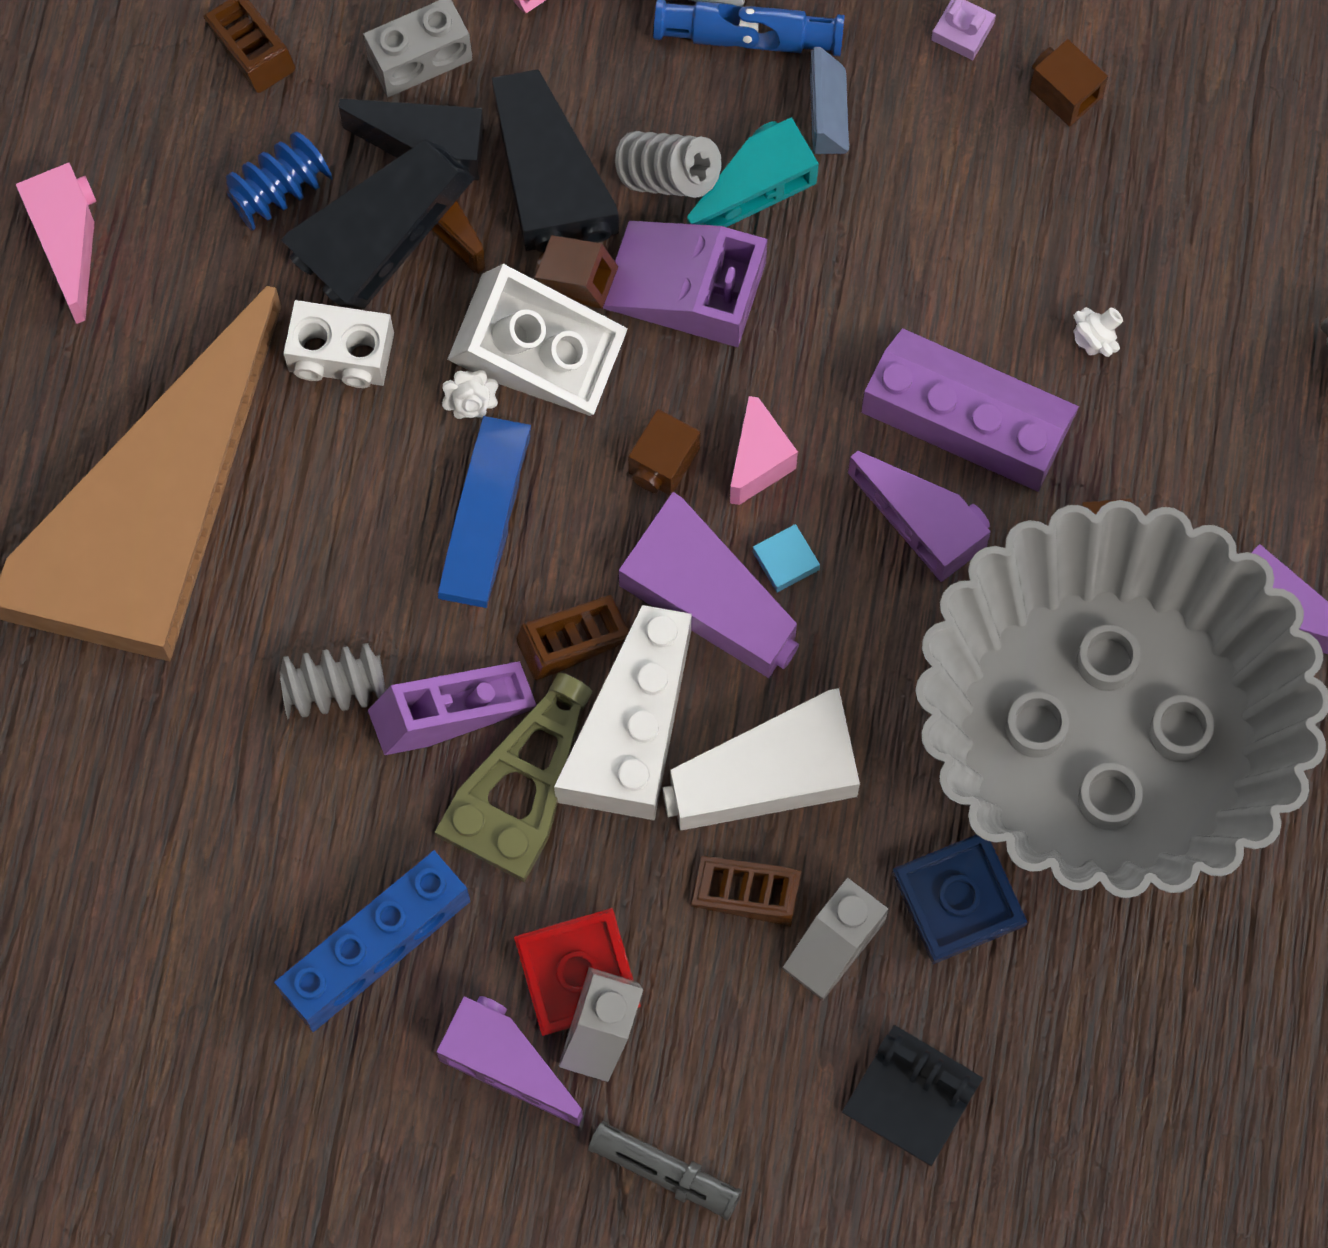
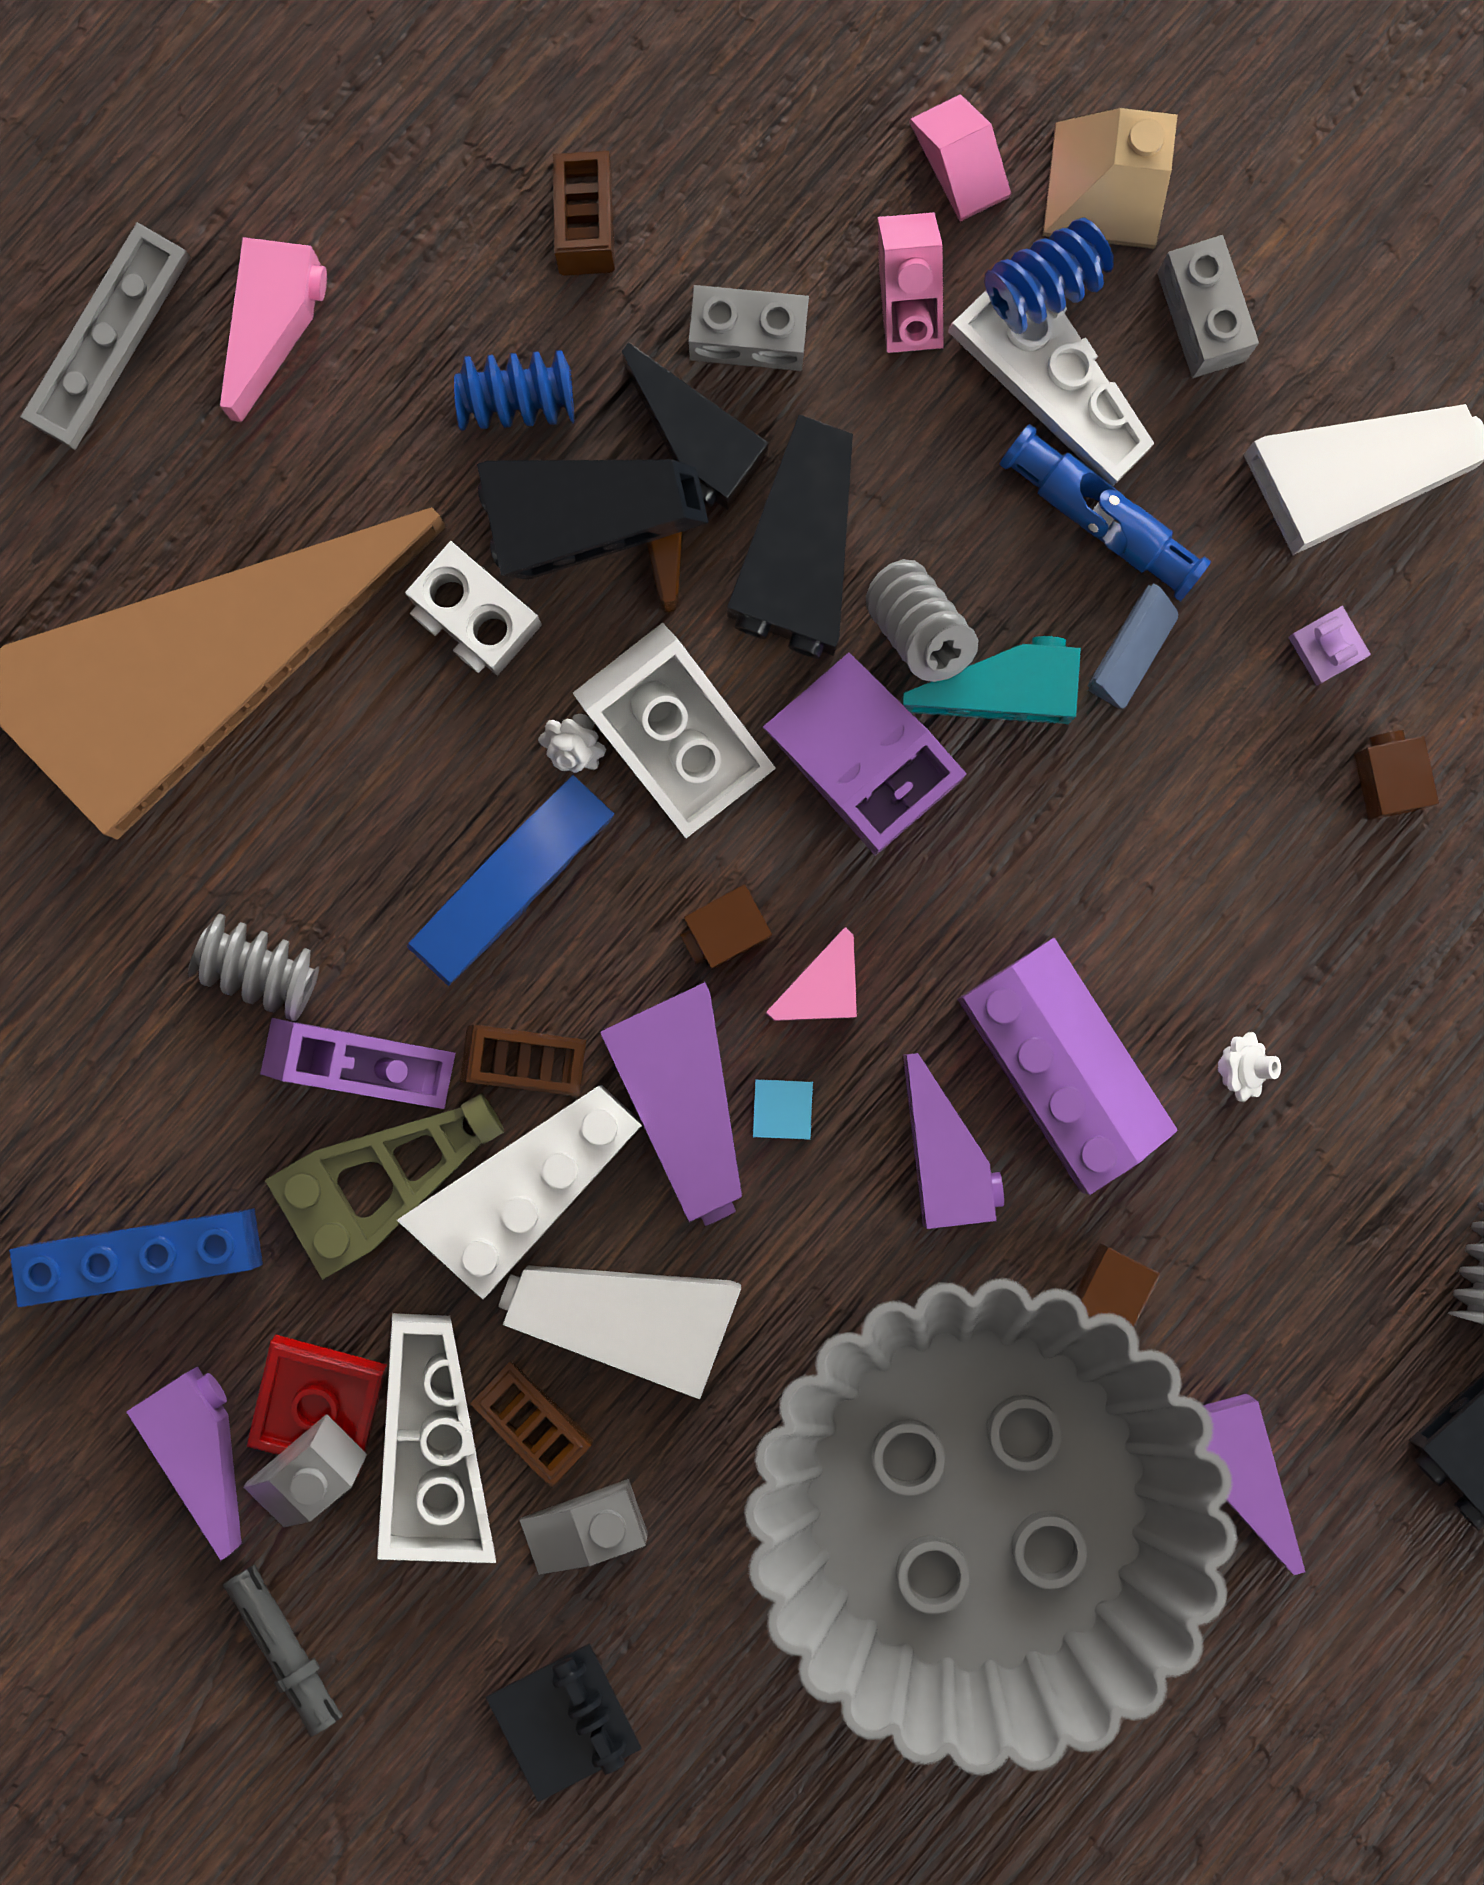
camera: 30 degrees right, 15 degrees up
(577, 270) = (757, 679): reddish brown brick -> none
(688, 954) = (430, 1465): none -> white wedge
(959, 897) = (713, 1563): dark blue plate -> none

